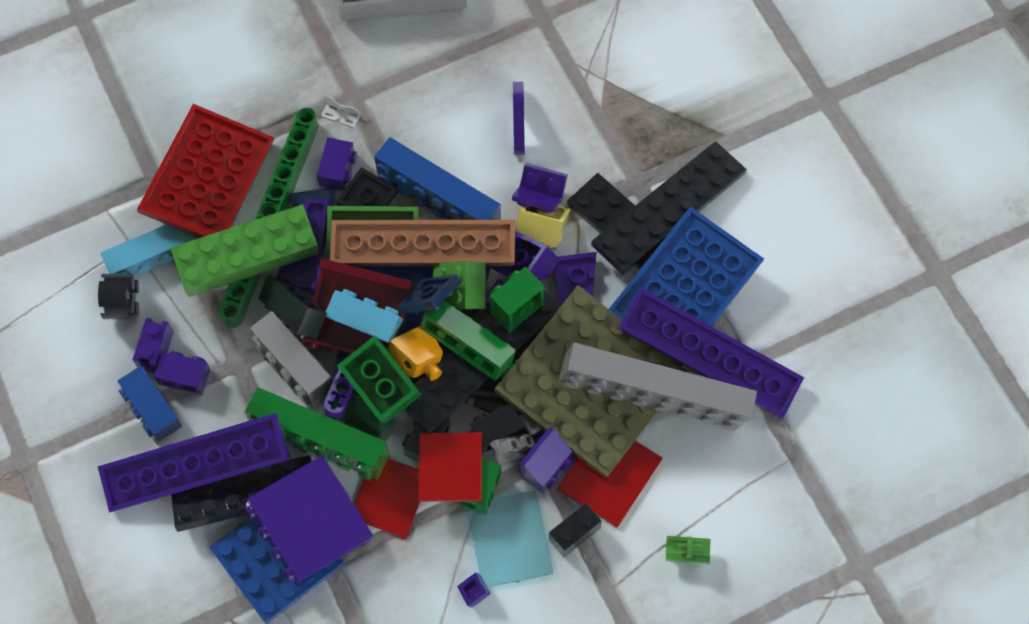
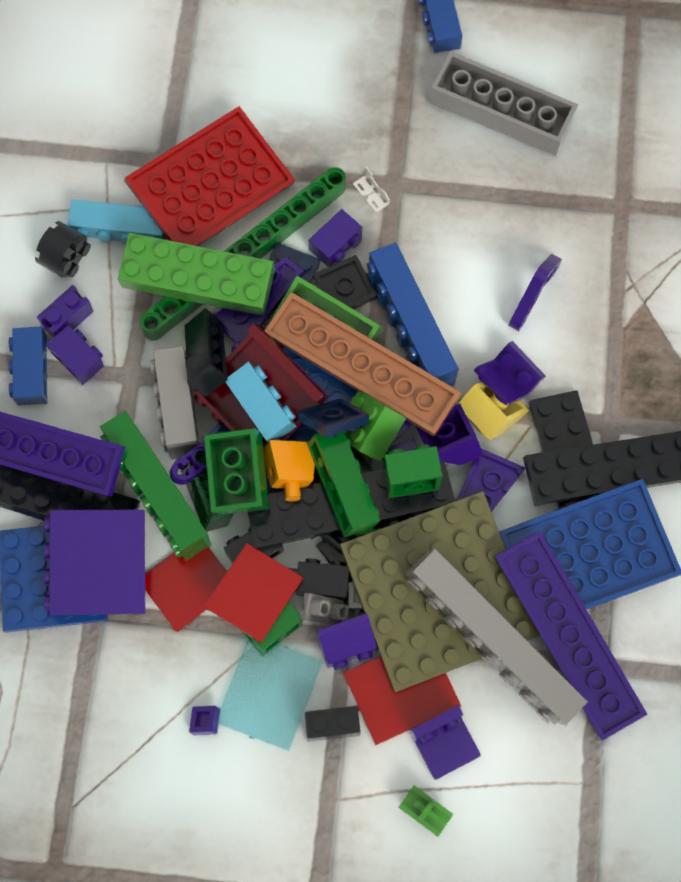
camera: 30 degrees right, 5 degrees up
(669, 491) = (445, 743): none -> dark purple bracket

